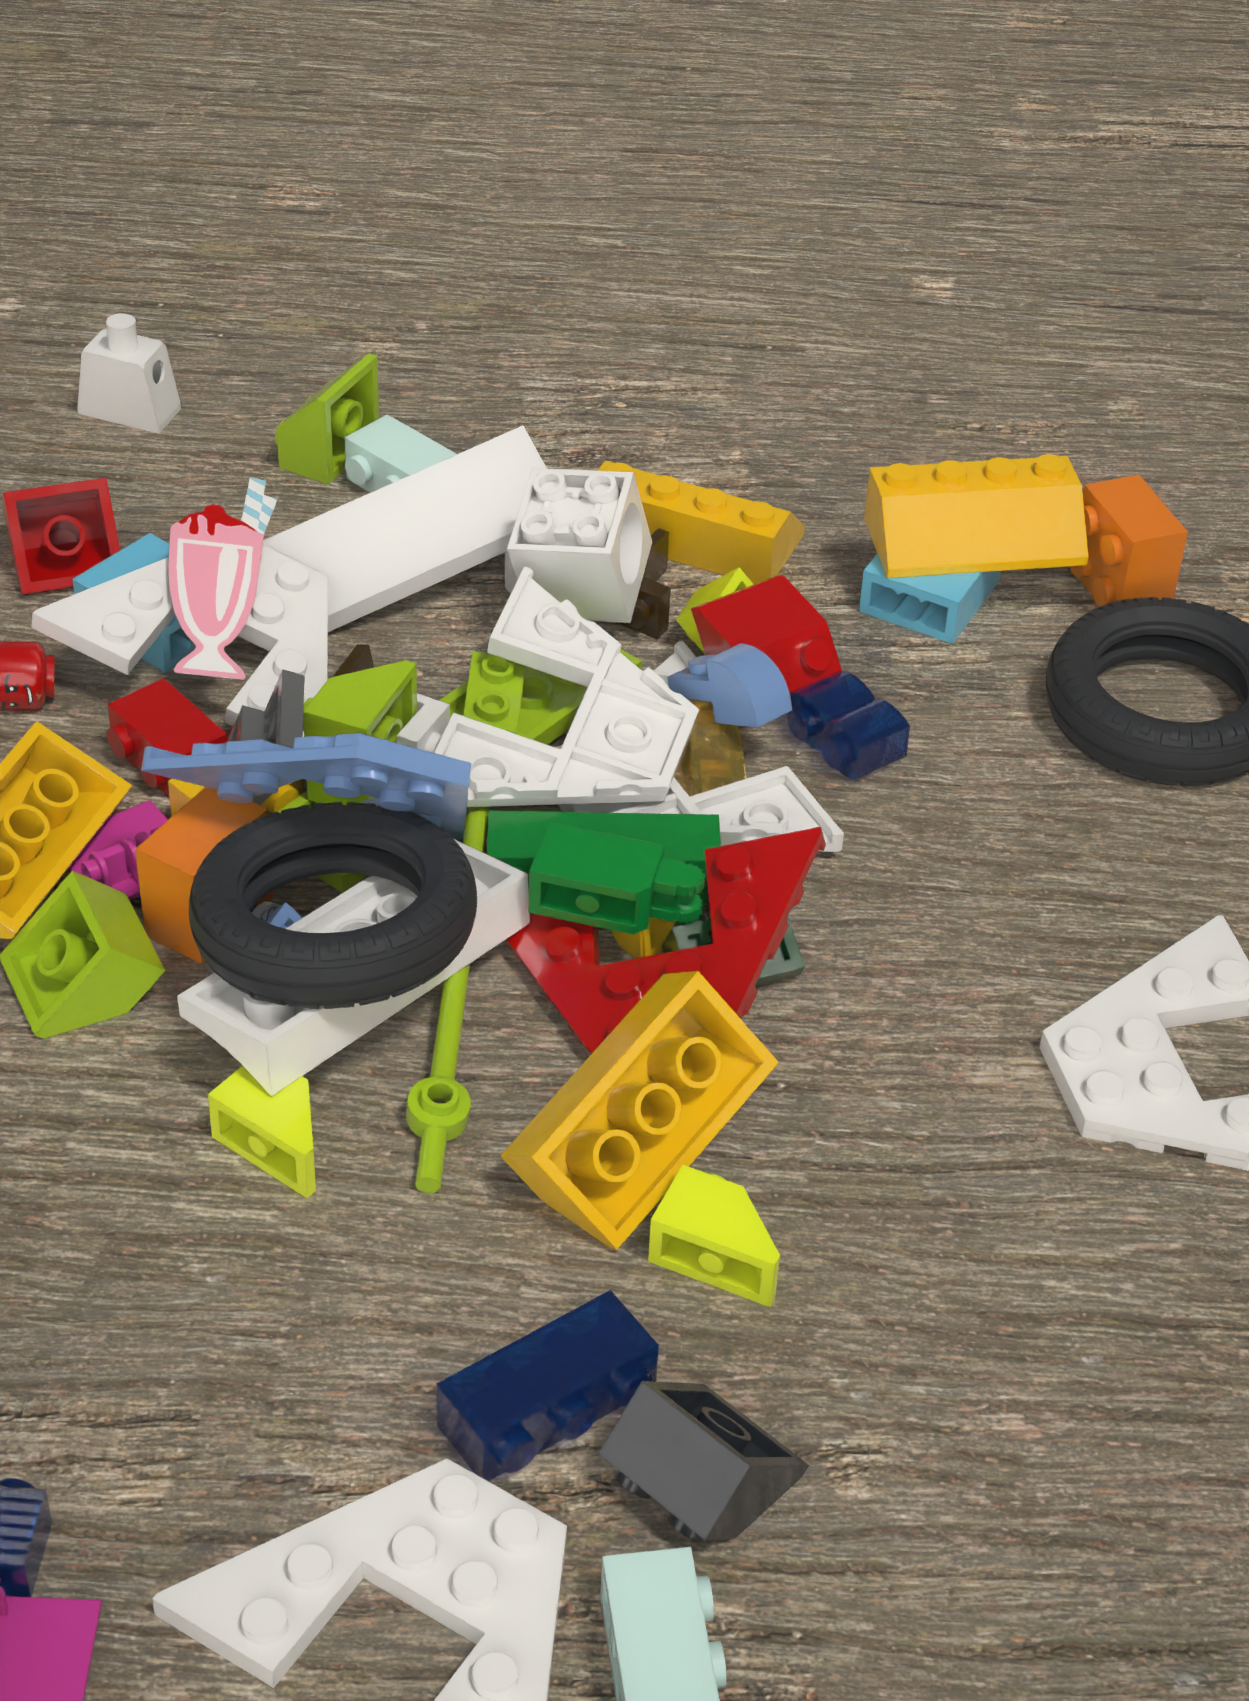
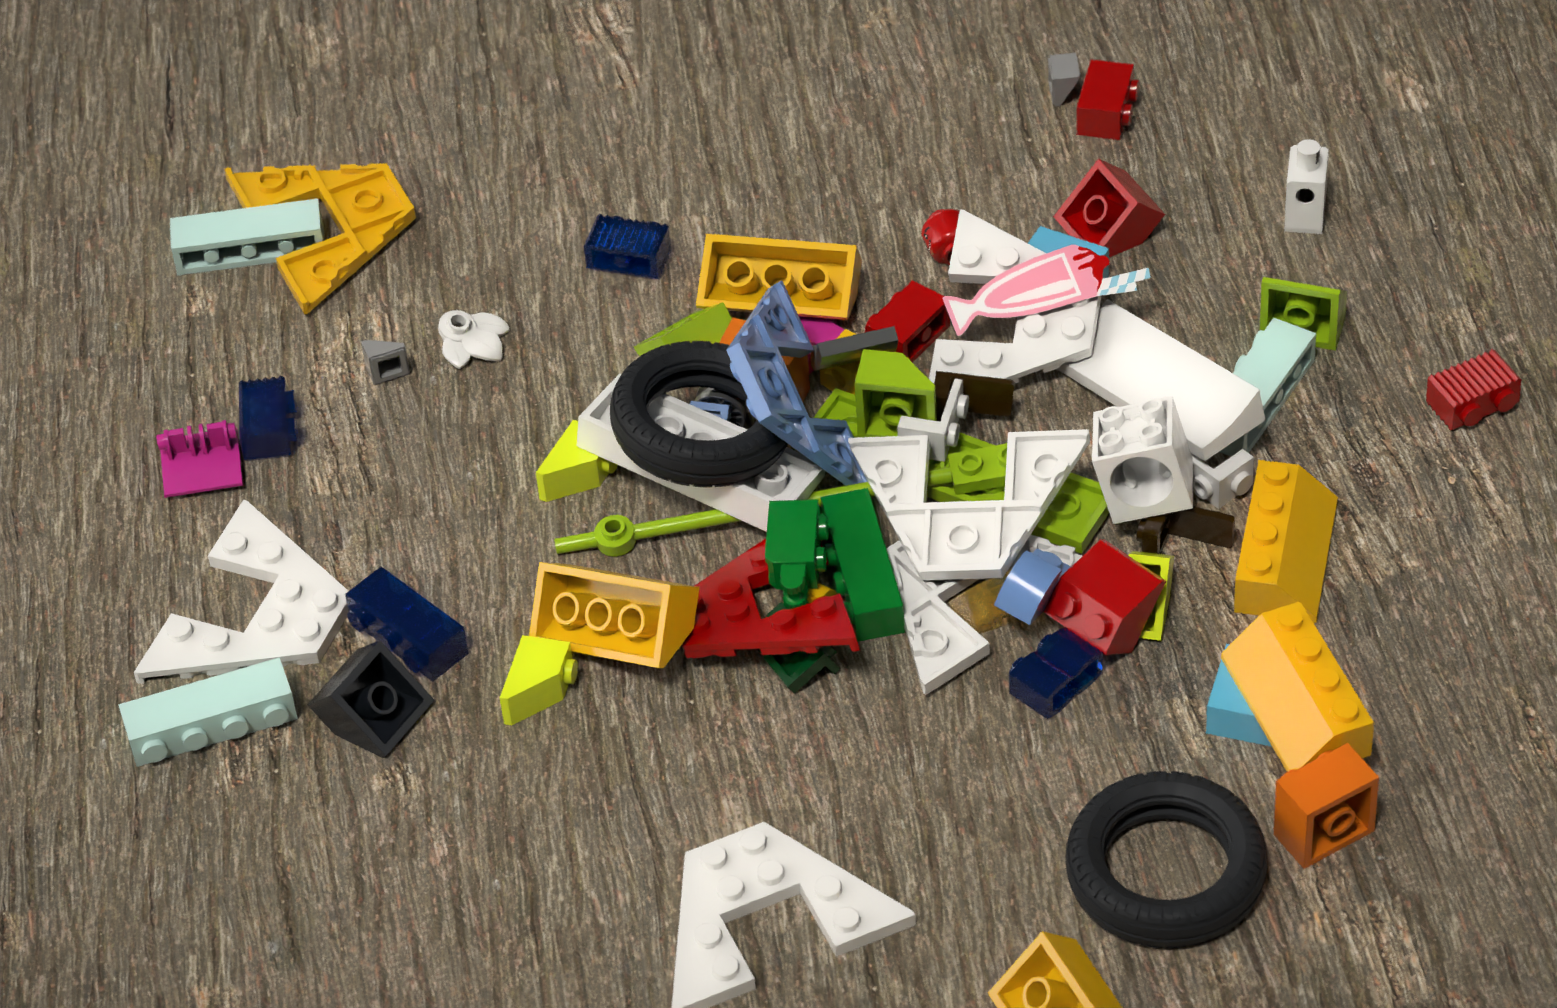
camera: 85 degrees right, 5 degrees up
(512, 349) = (1473, 390): none -> red brick

